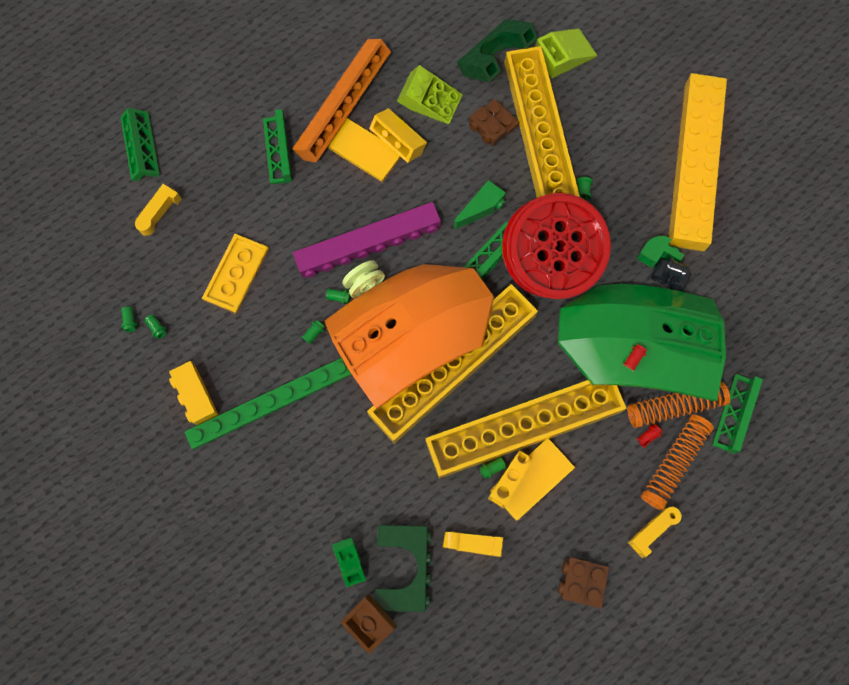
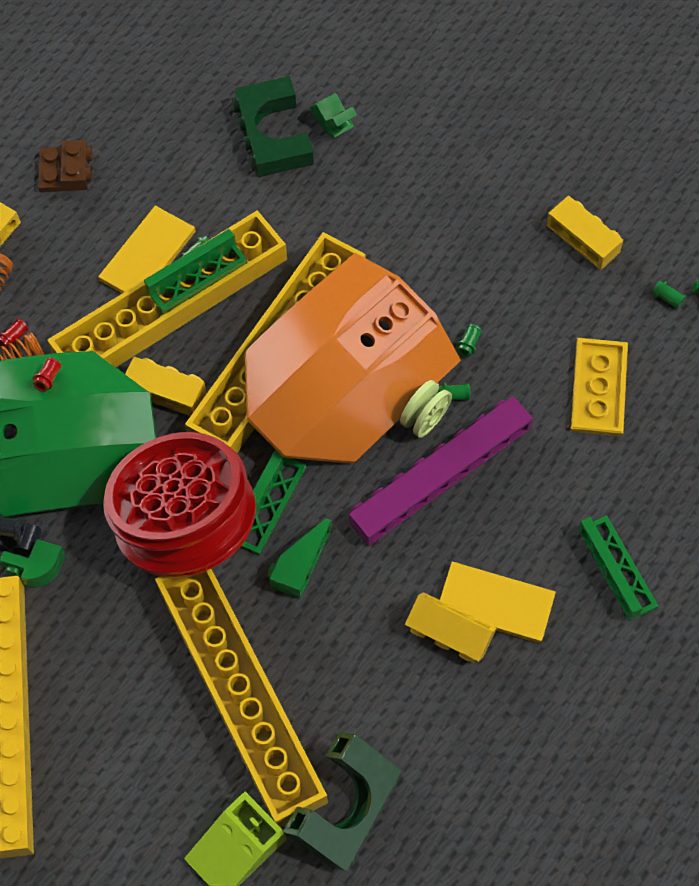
camera: 165 degrees right, 10 degrees down
(267, 403) = (494, 247): green plate -> none
(341, 100) = (551, 661): orange brick -> none
(368, 624) = (292, 62): reddish brown plate -> none
(429, 95) = (426, 708): lime slope -> none
(473, 543) = (199, 170): yellow leg -> none
(492, 122) = (318, 695): reddish brown plate -> none
(507, 433) = (189, 265): none -> green fence
(510, 479) = (172, 234): yellow leg -> none
(544, 357) = (168, 385): none -> yellow brick
(584, 187) = (159, 627): green bush -> none

